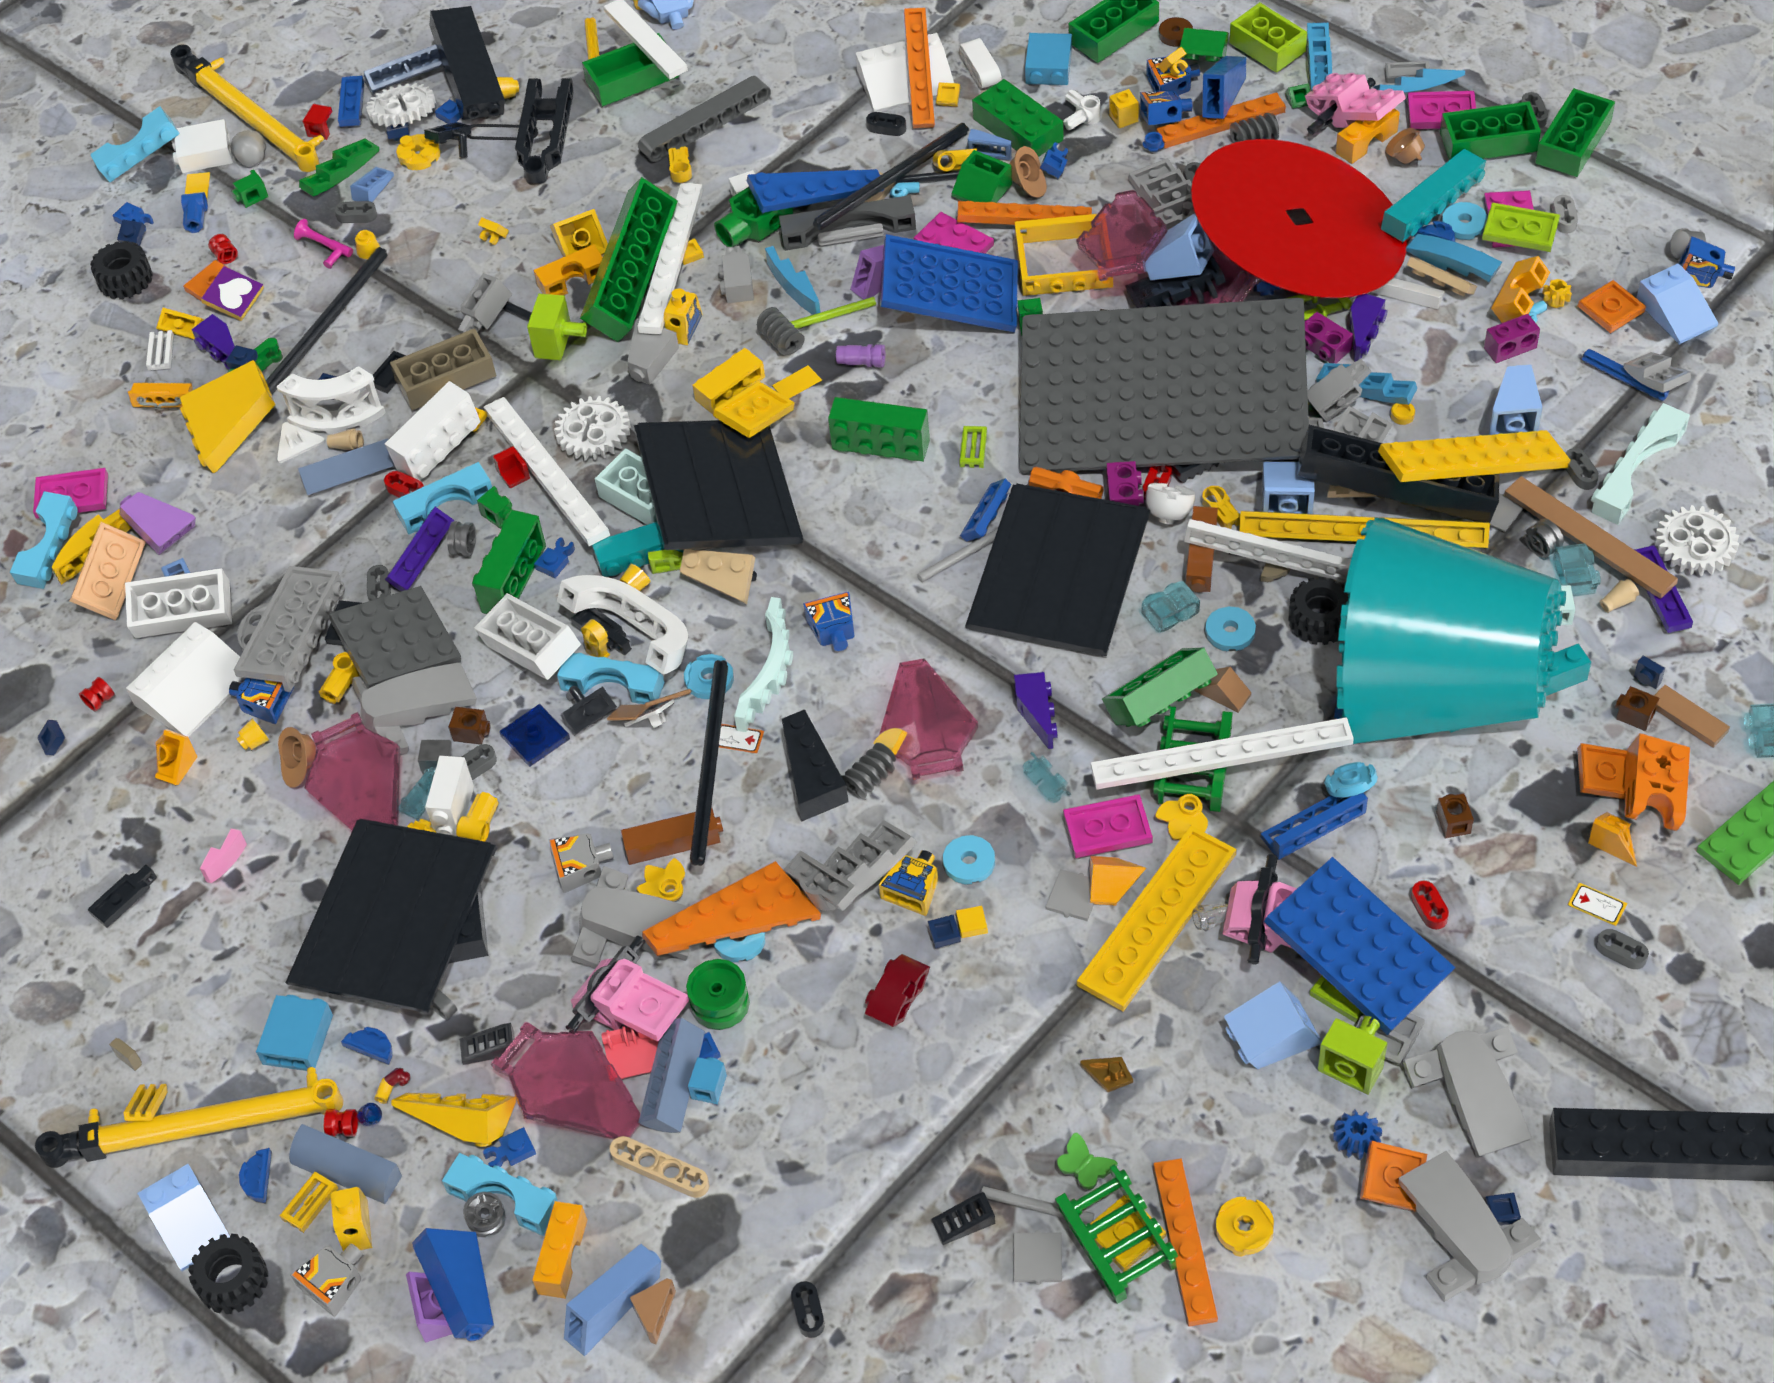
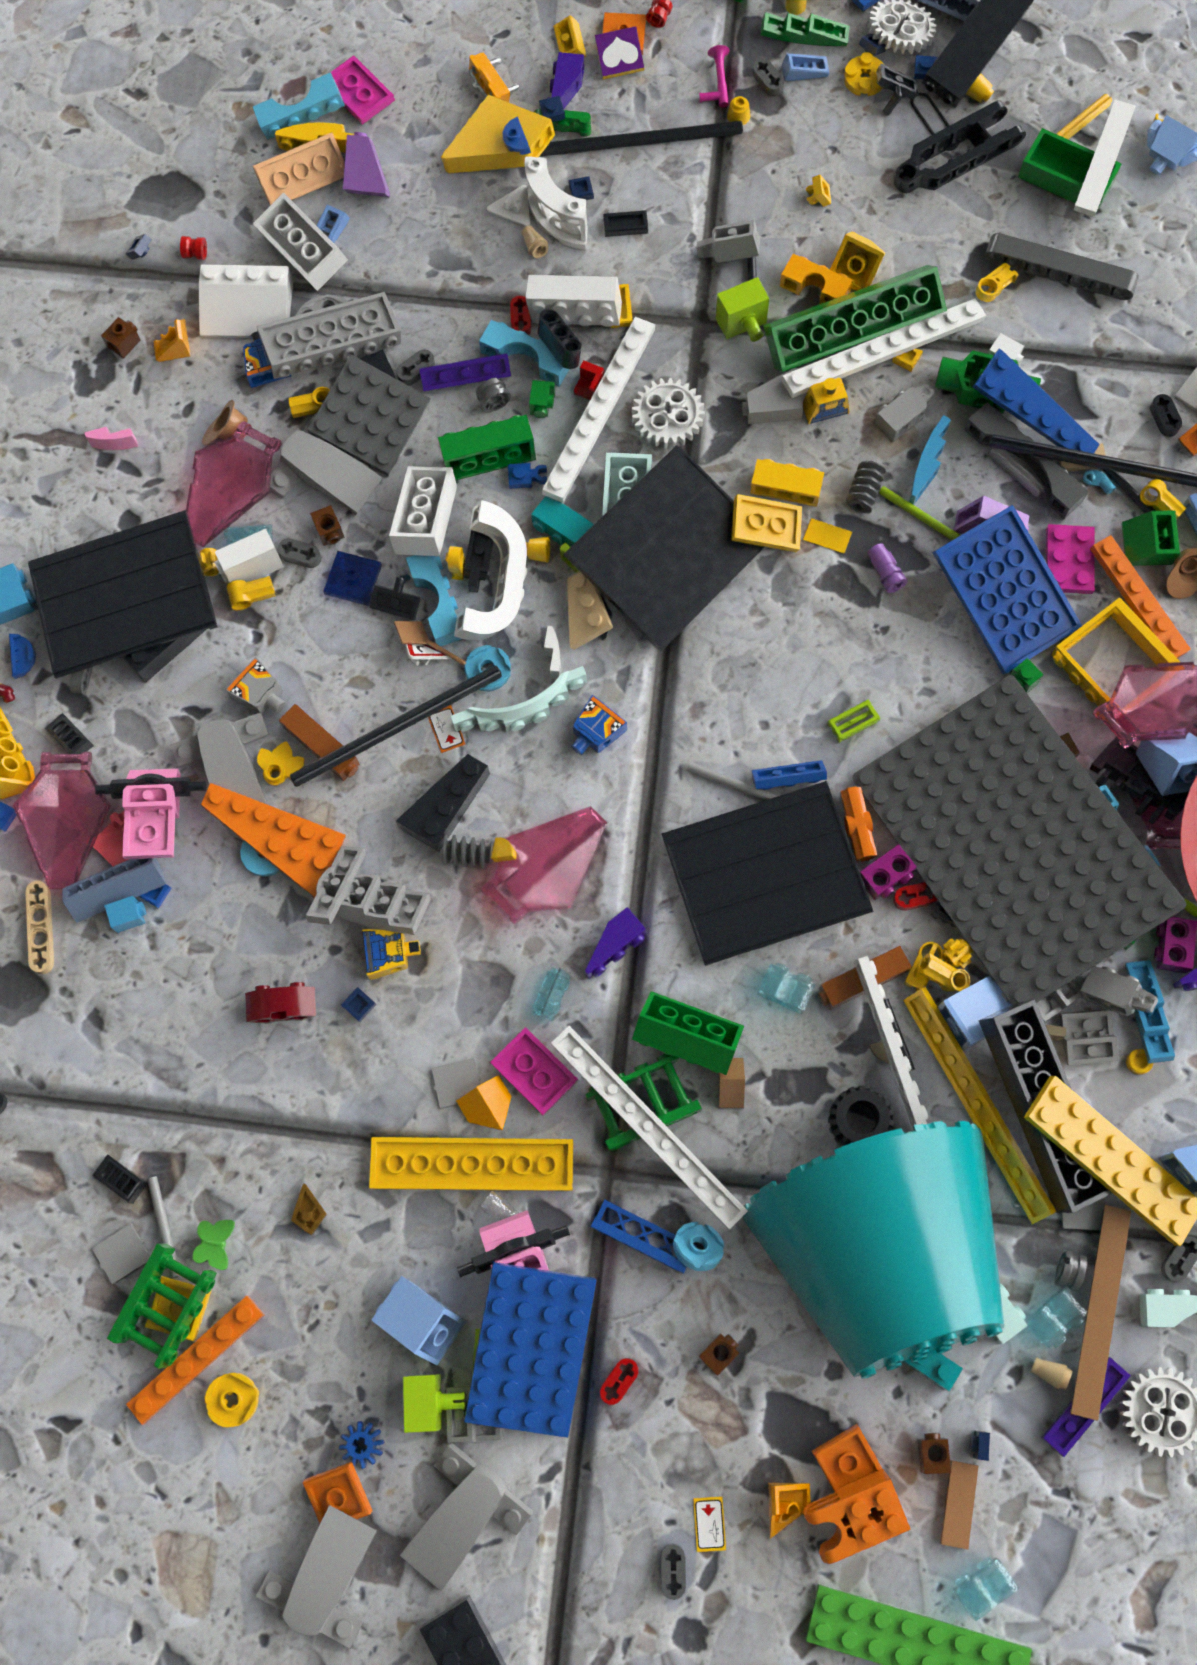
camera: 55 degrees right, 20 degrees up
(122, 896) = (40, 397): black hinge -> none
(128, 797) = (121, 337): none -> reddish brown brick
(169, 337) = (530, 43): white tile -> none
(246, 391) = (515, 138): none -> blue plate
(251, 736) = (225, 380): yellow hat -> none
(346, 467) = (506, 258): sand blue brick -> none
(430, 752) = (283, 520): flat silver panel -> none
(457, 359) = (646, 260): dark tan brick -> none
(460, 457) = (559, 339): none -> black beam
(718, 994) = (197, 873): green wheel -> none
(734, 615) = (551, 649): none -> white slope
(879, 429) = (809, 636): green piece -> none
(969, 846) = (438, 966): medium azure tile -> none
(971, 921) = (383, 1019): yellow tile -> none
(1169, 502) = (895, 921): white cylinder -> none
(1181, 818) = (579, 1126): yellow plate -> none
(1228, 475) = (957, 953): none -> yellow gear
(1232, 617) = (805, 1038): medium azure tile -> none
(1242, 492) = (943, 974): none -> yellow piece
(1504, 1208) = (364, 1600): dark blue tile -> none

